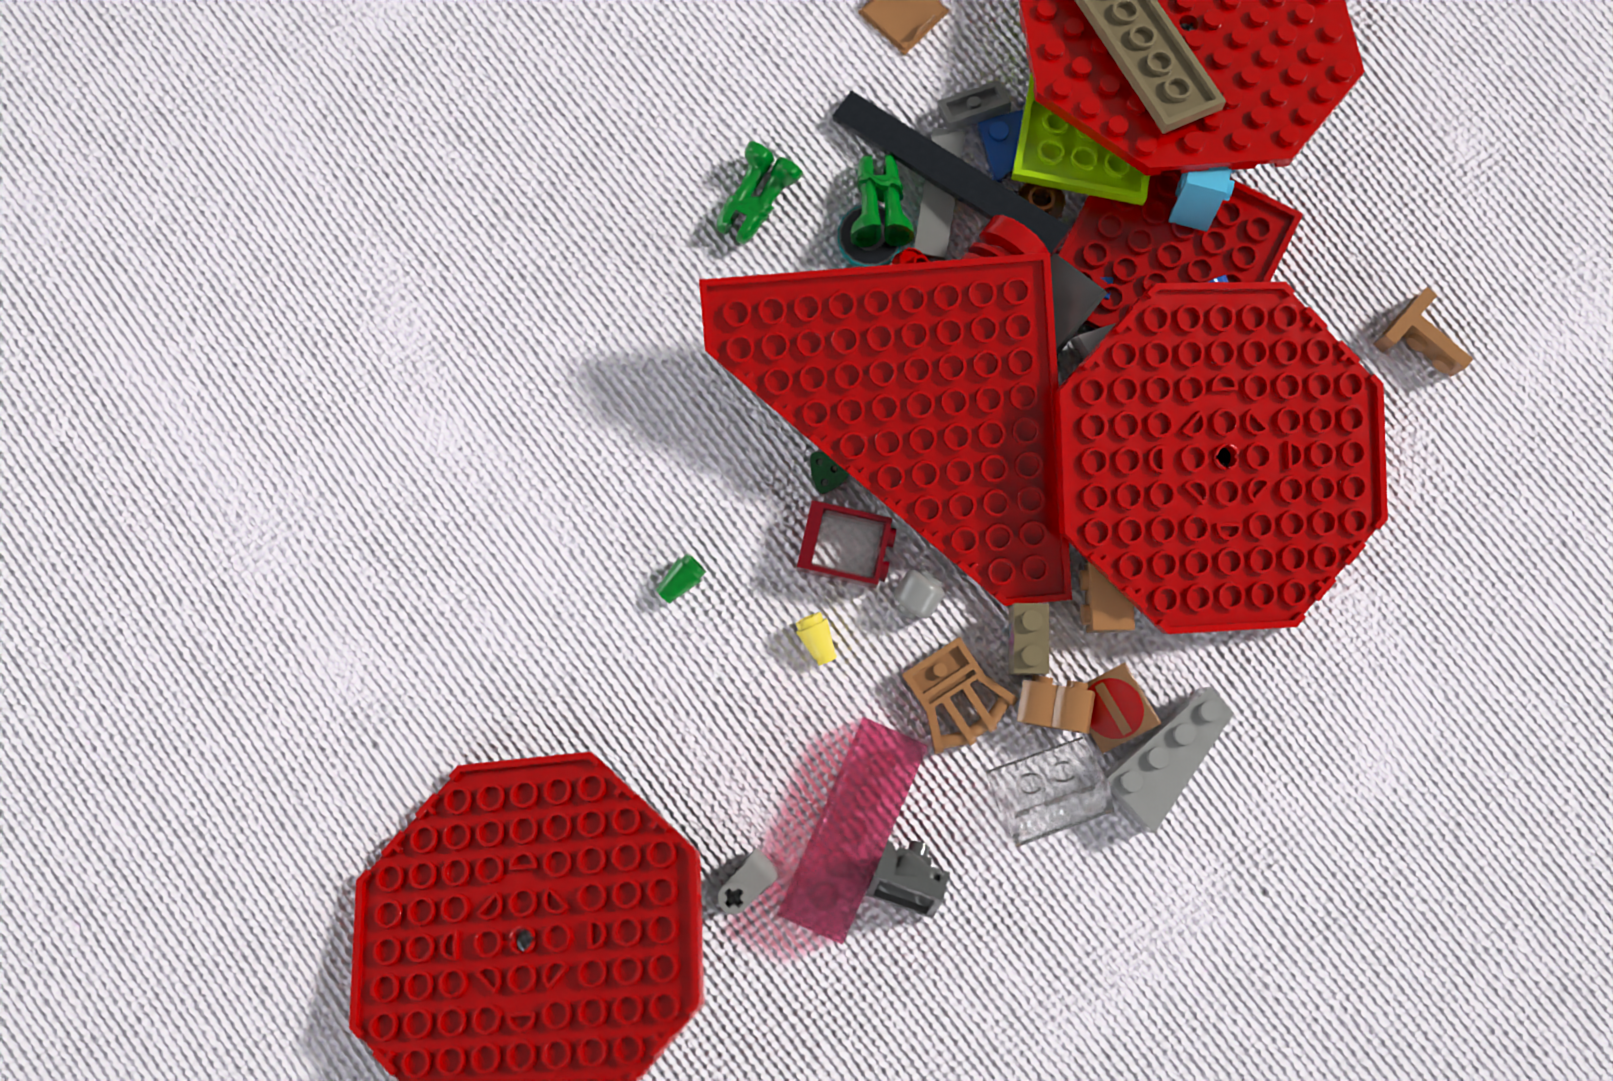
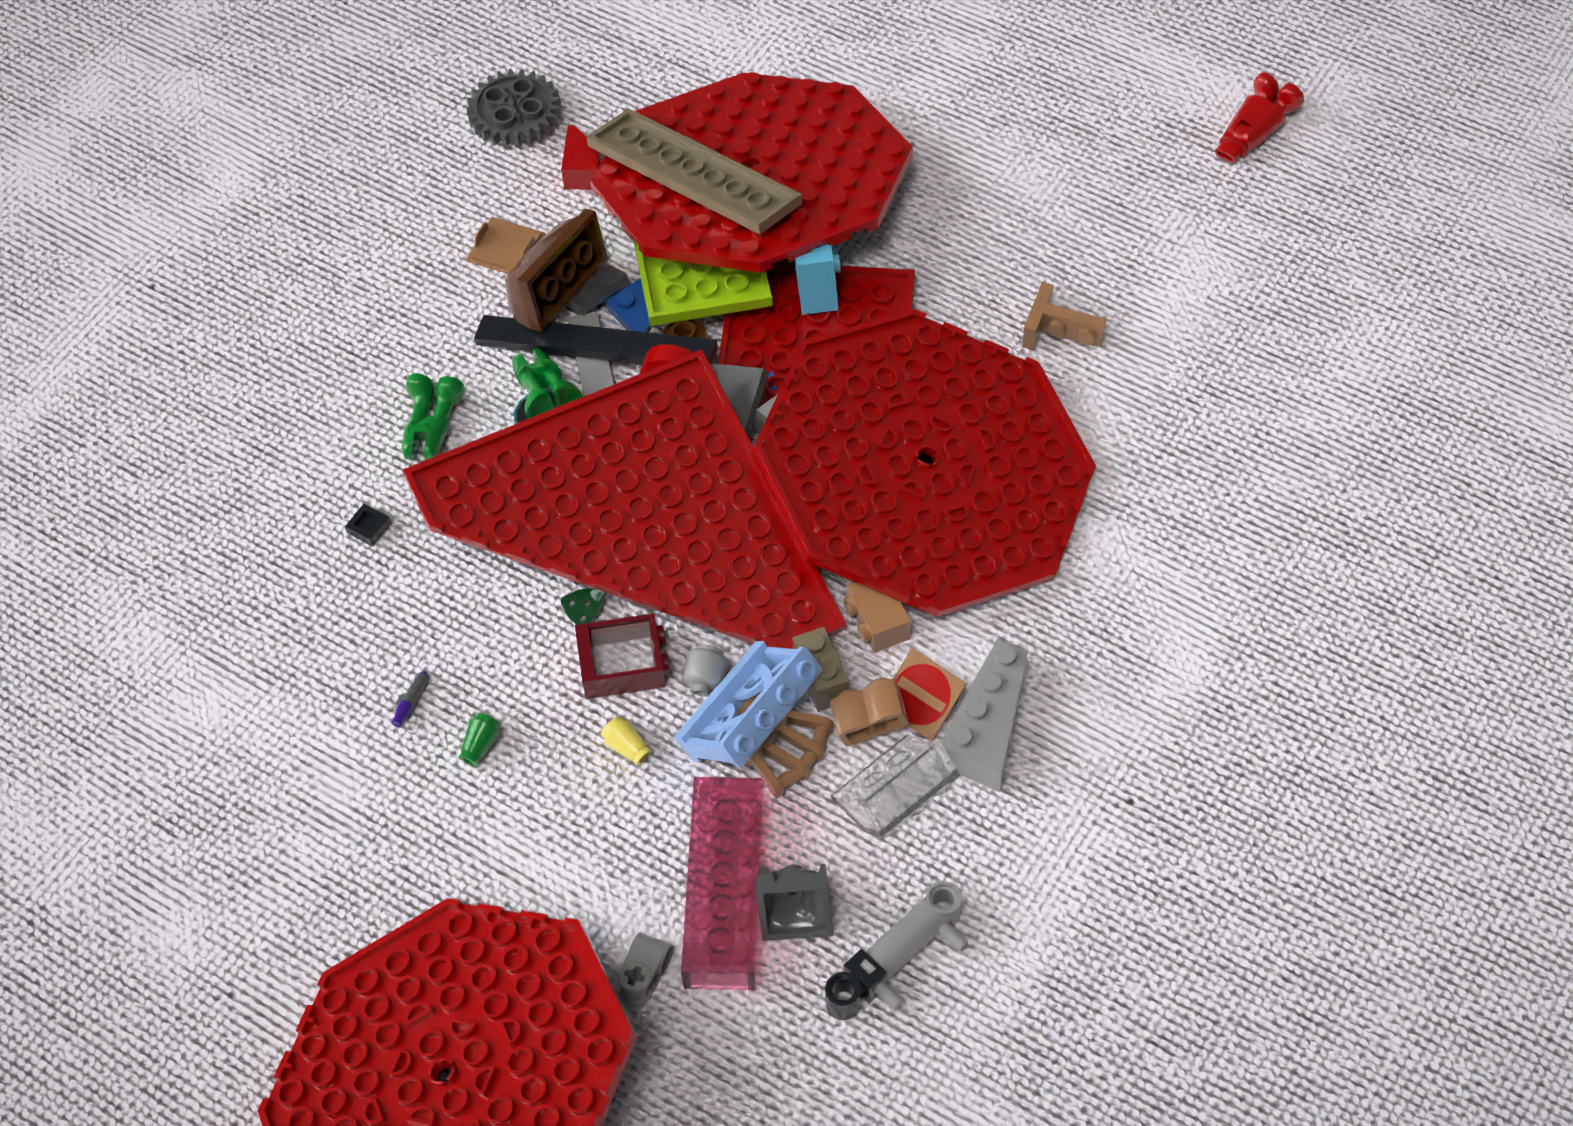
camera: 15 degrees left, 25 degrees down
(630, 505) = (407, 700): none -> piece
(657, 292) = (368, 525): none -> black tile
(939, 73) = (555, 270): none -> reddish brown windscreen
(945, 689) = (715, 727): none -> light blue fence
(954, 972) = (869, 970): none -> light grey piece

